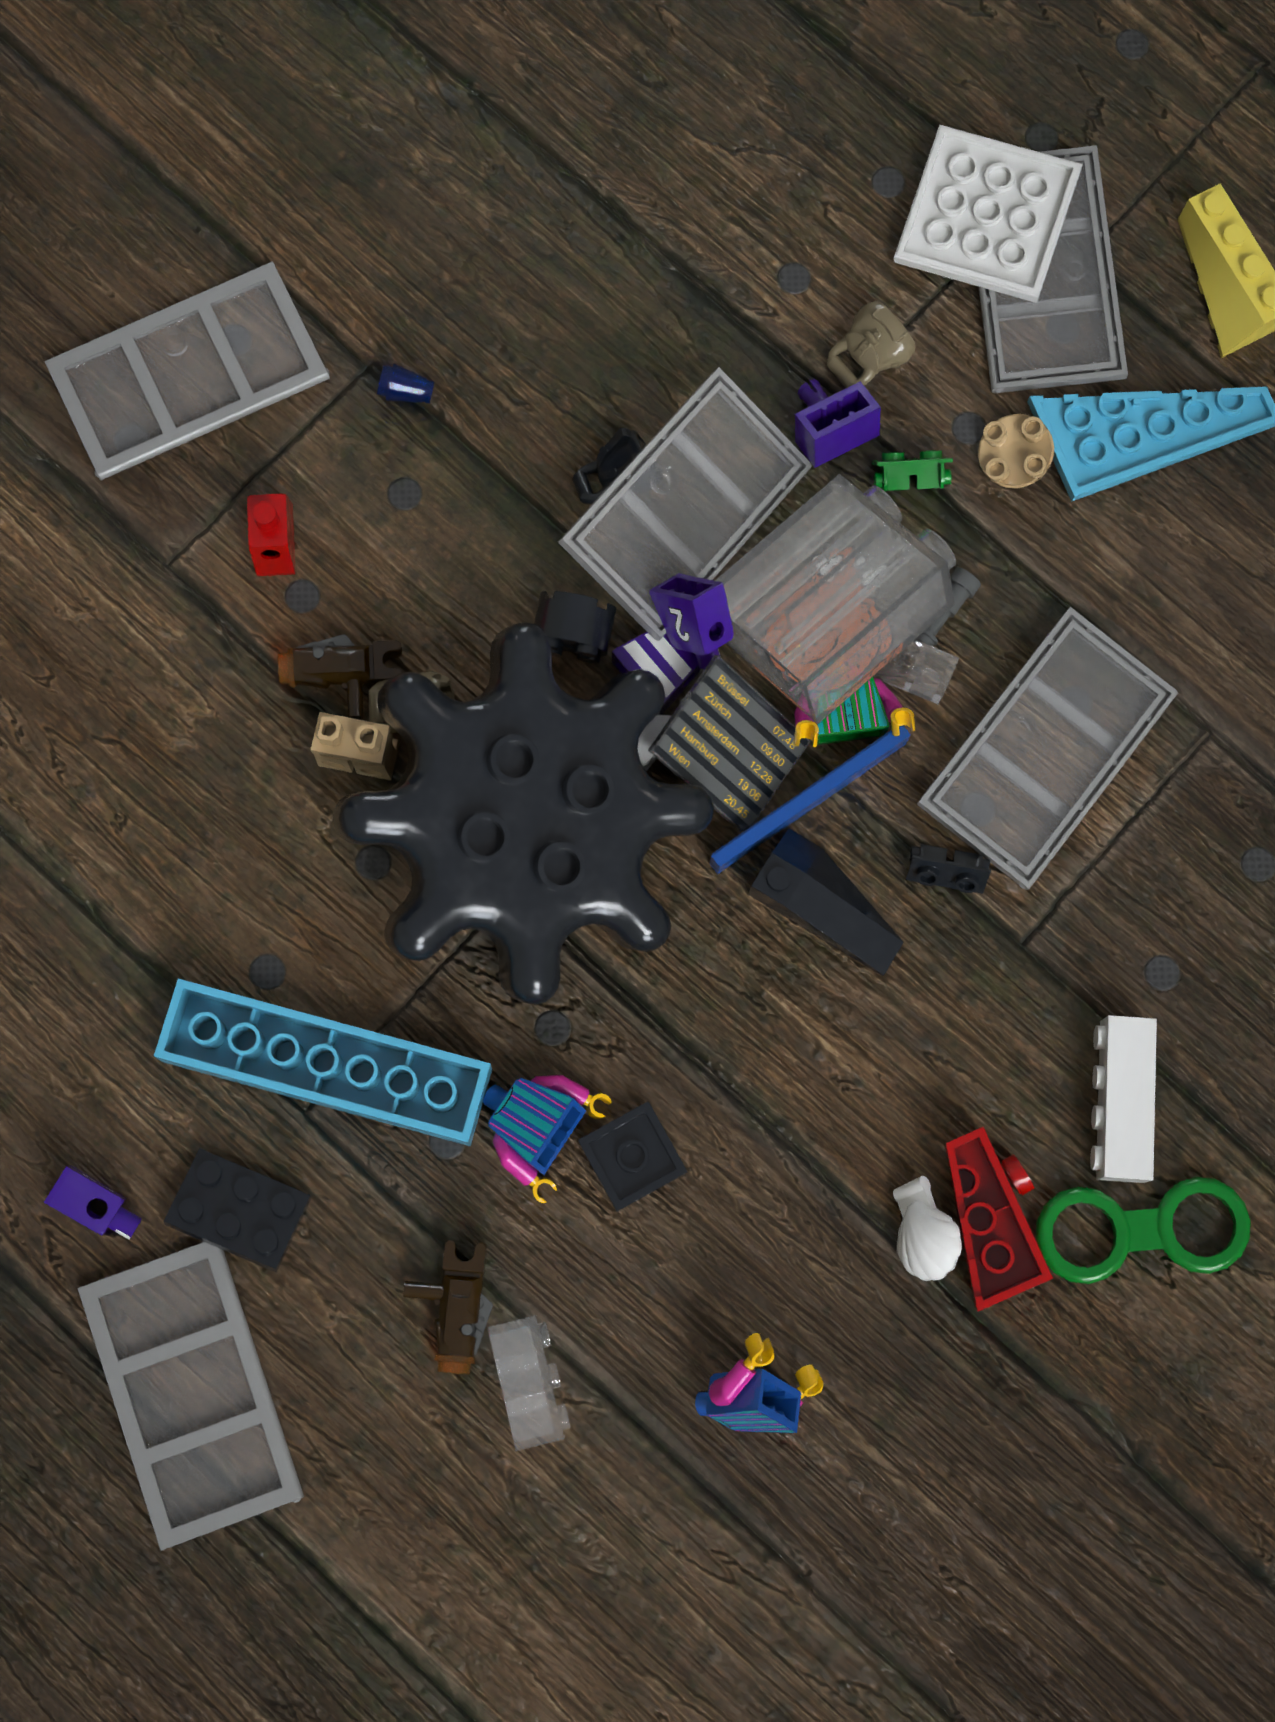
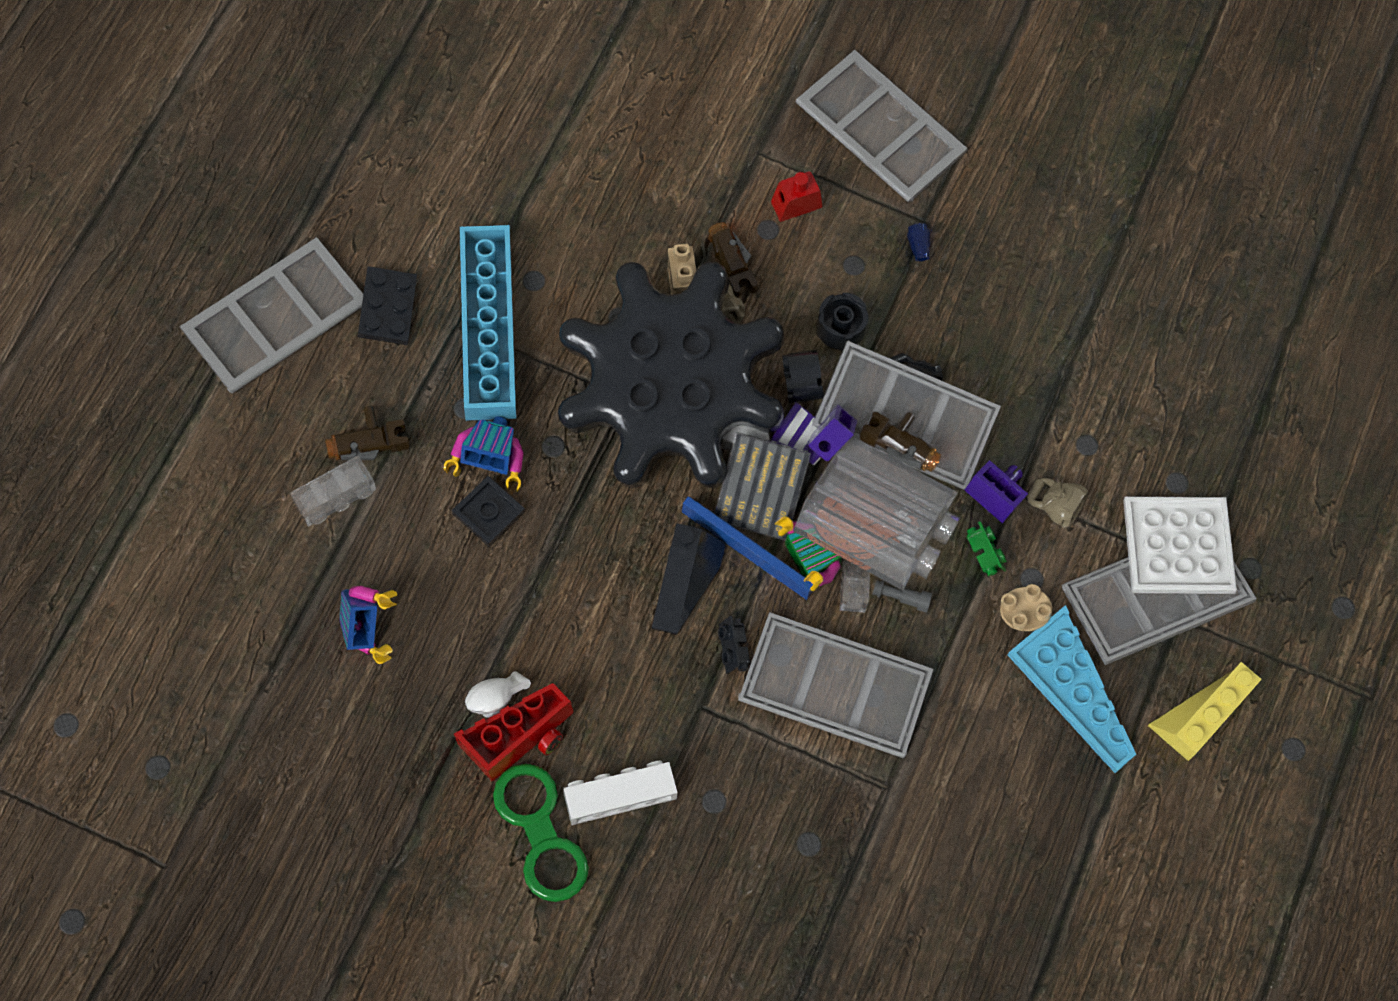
camera: 70 degrees right, 10 degrees down
(74, 1195) = (366, 224): dark purple torso -> none
(505, 520) = (841, 320): none -> black brick
(740, 526) = (899, 443): none -> dark brown piece

